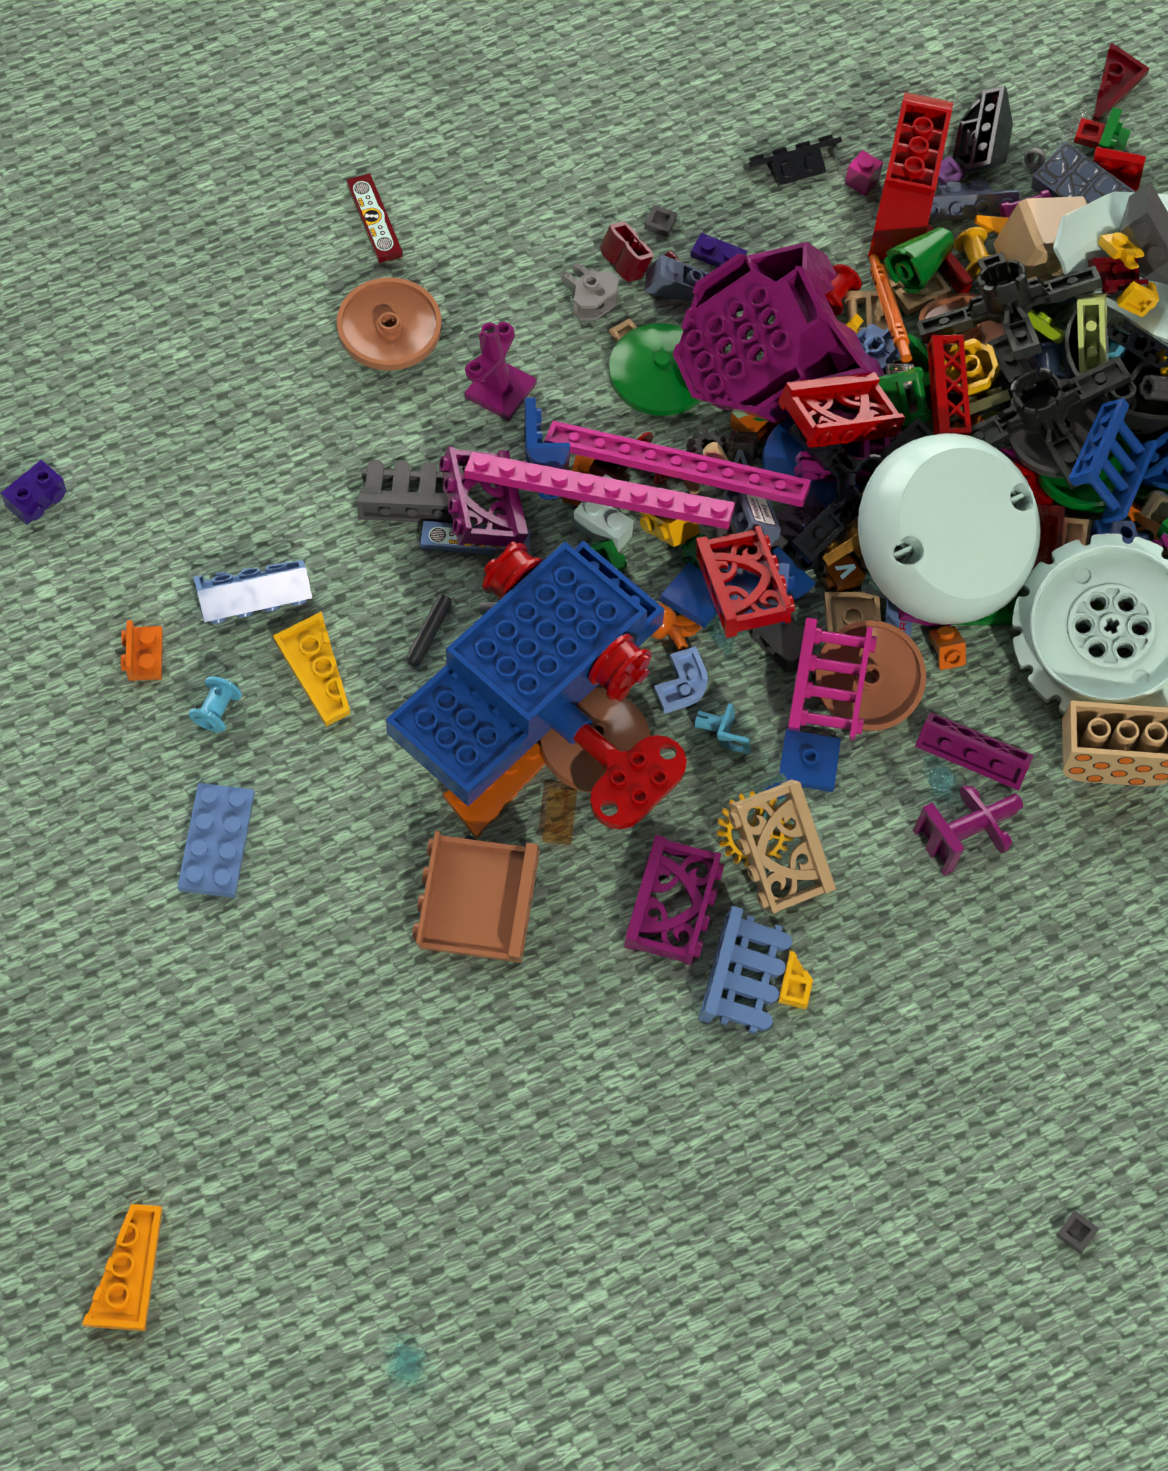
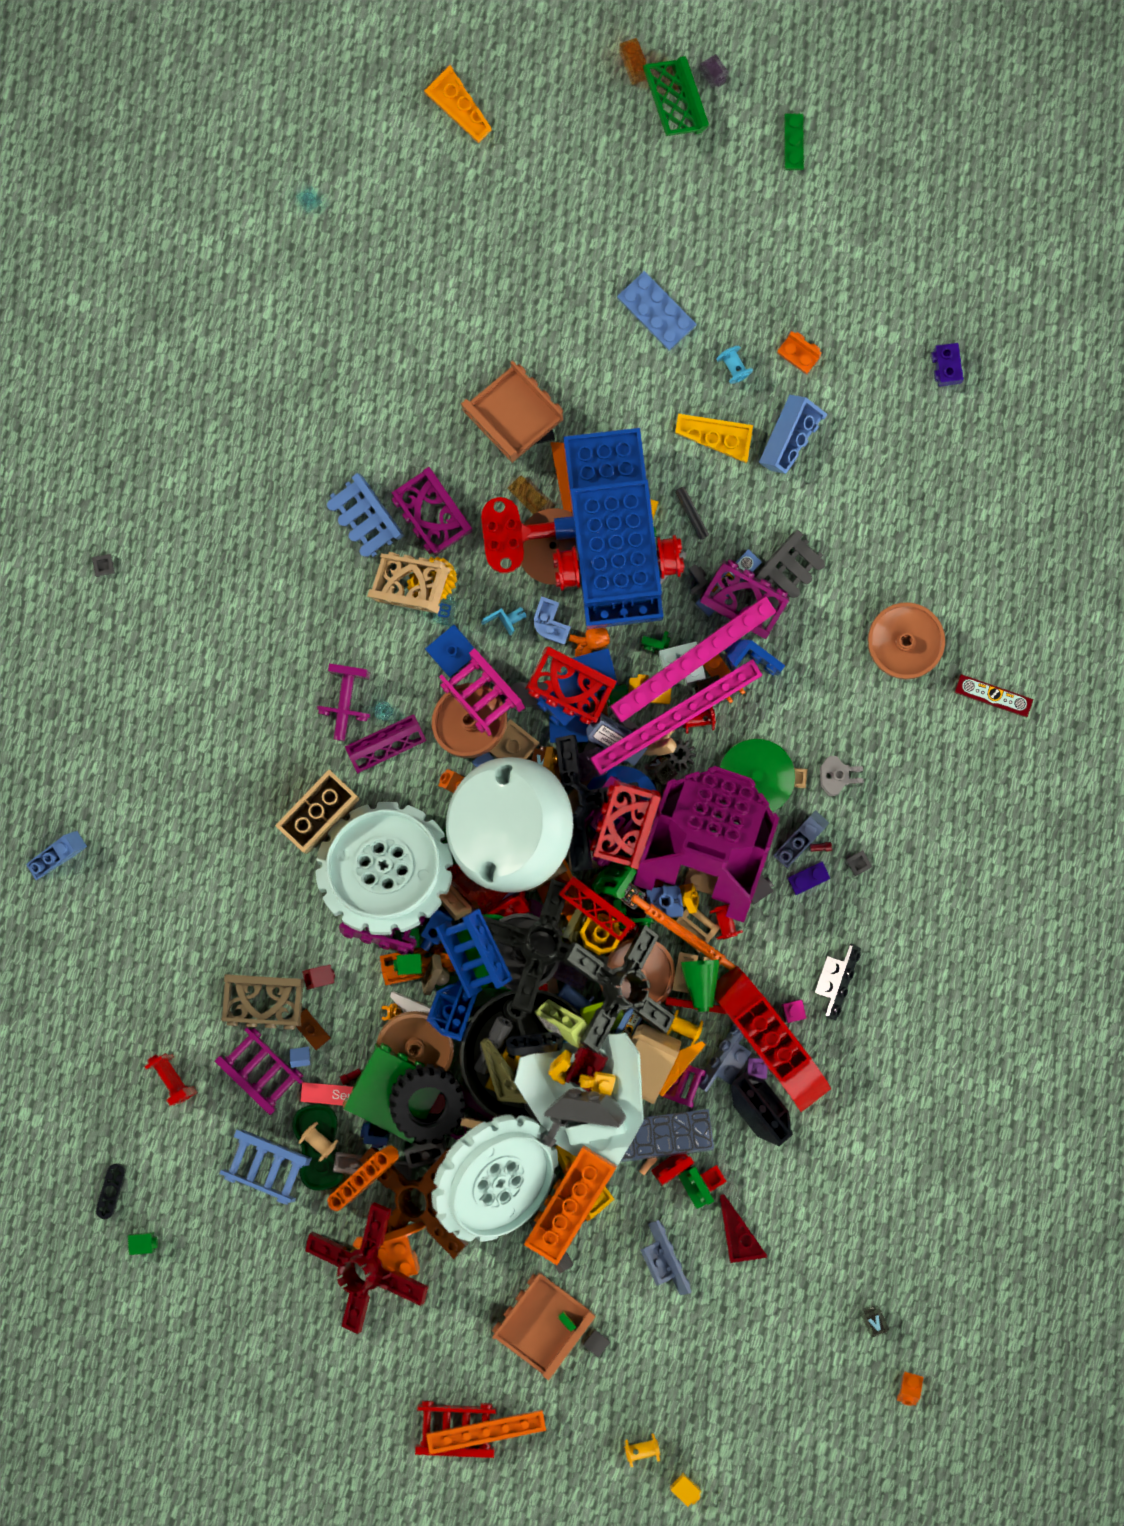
camera: 135 degrees right, 20 degrees up
(496, 383) = (817, 673): magenta piece -> none
(626, 251) = (842, 817): dark red brick -> none
(795, 984) = (338, 538): yellow tile -> none
(1031, 155) = (723, 1130): light grey hinge -> none

